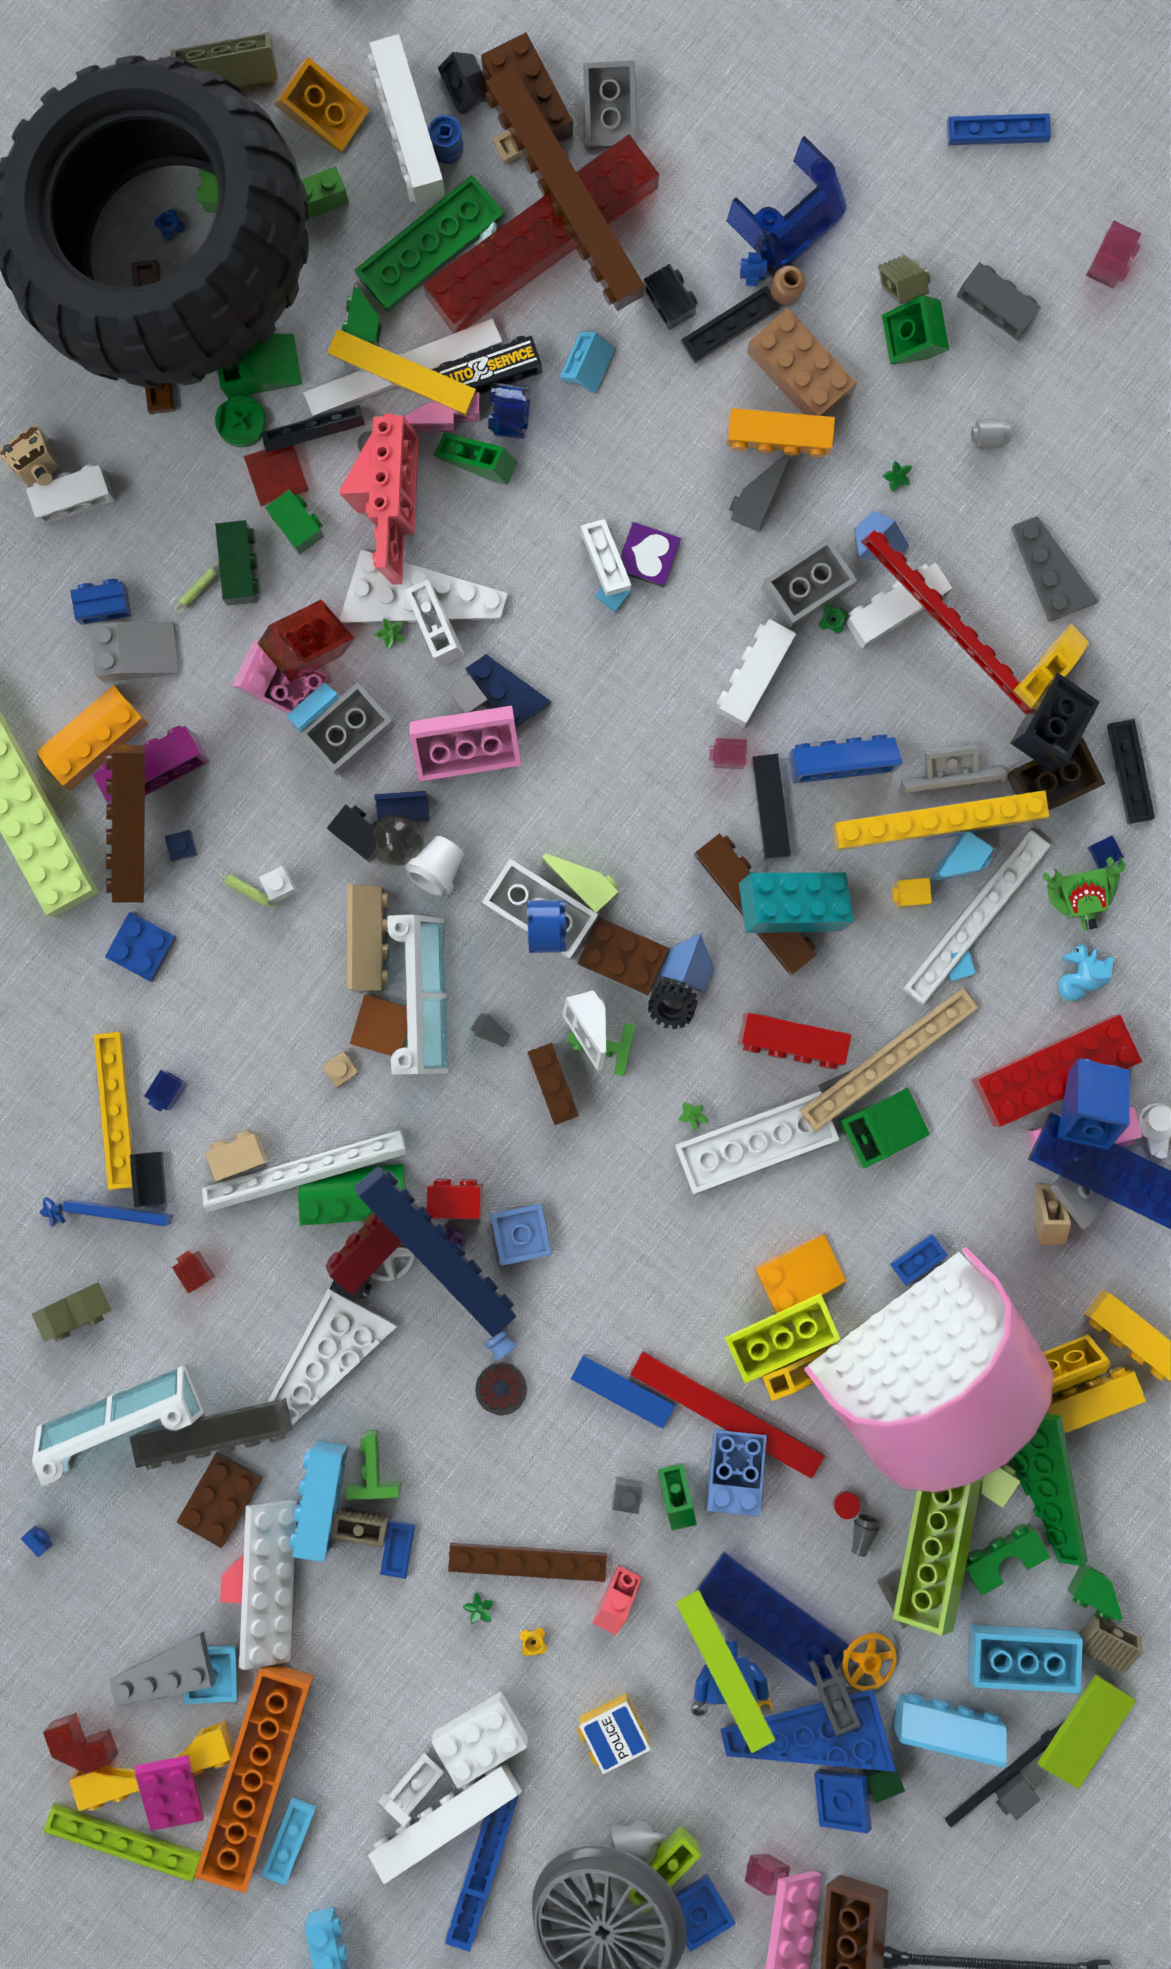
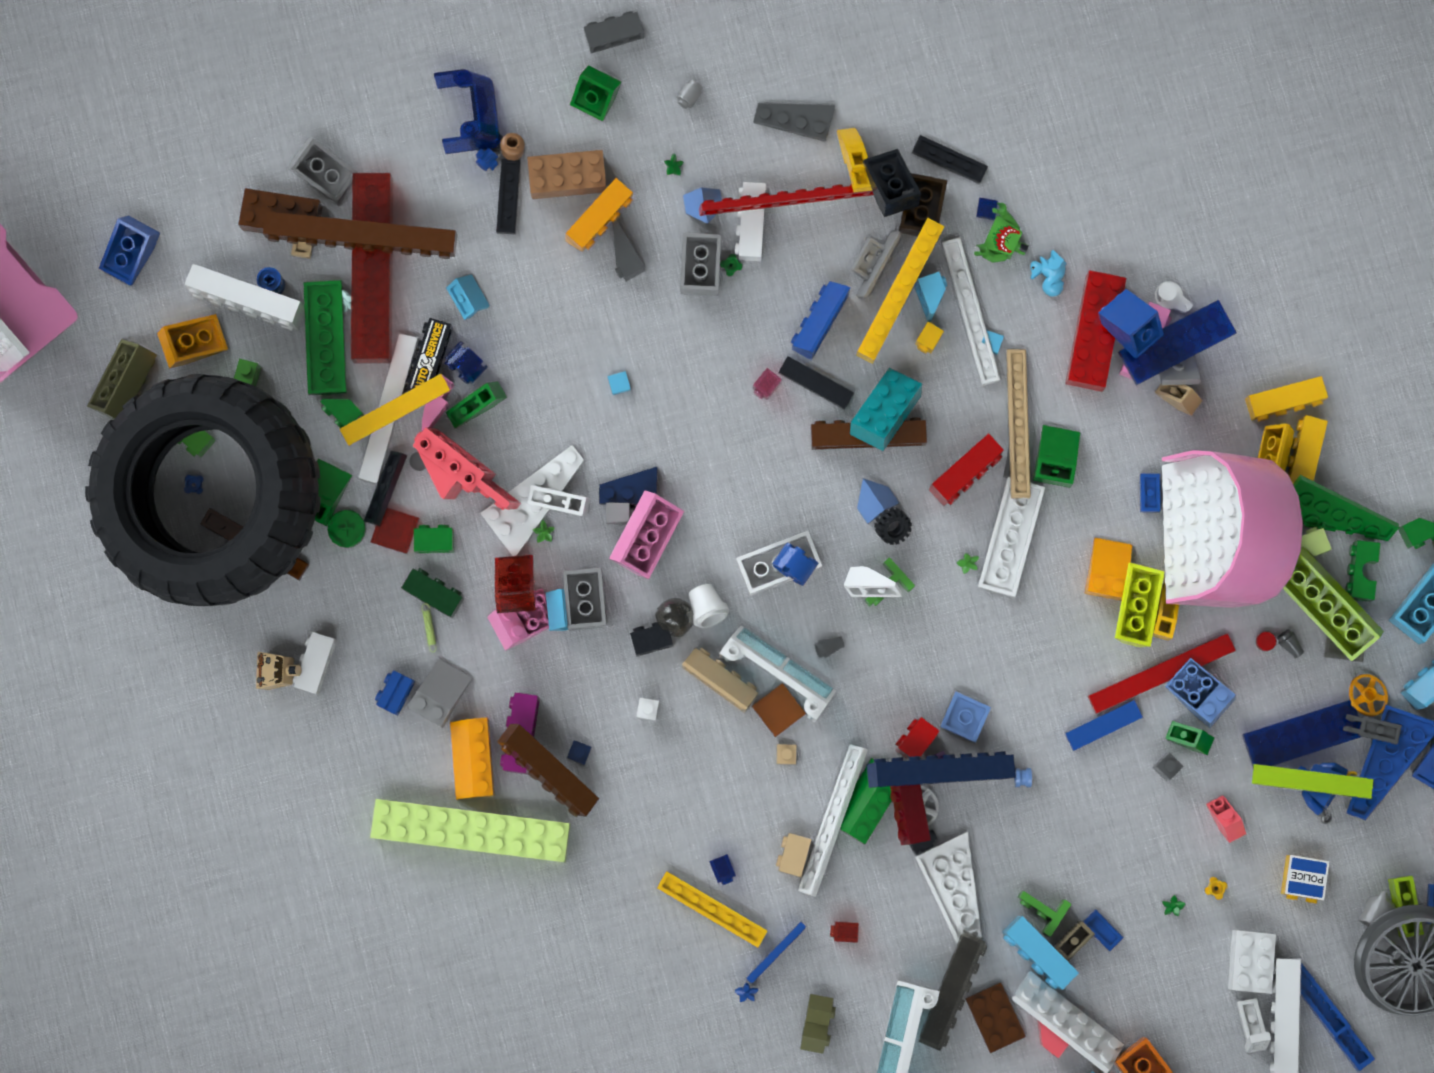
camera: 55 degrees left, 5 degrees down
(140, 946) = (622, 822): blue plate -> none
(148, 1179) = (769, 918): black panel -> none
(247, 890) = (636, 731): yellowish green piece -> none
(411, 804) = (656, 596): dark blue panel -> none
(463, 80) = (242, 245): black panel -> none
(501, 1388) = (1049, 797): clear smoke tile -> none
(527, 1562) = (1165, 857): reddish brown plate -> none
(553, 1083) = (889, 631): reddish brown brick -> none
(587, 884) = (783, 525): yellowish green slope -> none
(605, 557) = (595, 371): white plate -> none
(623, 956) = (842, 535): reddish brown plate -> none
(649, 554) = (611, 345): tile -> none
(670, 296) = (466, 219): black brick -> none
(756, 672) = (730, 333): white brick -> none
(904, 279) = (560, 77): olive brick -> none

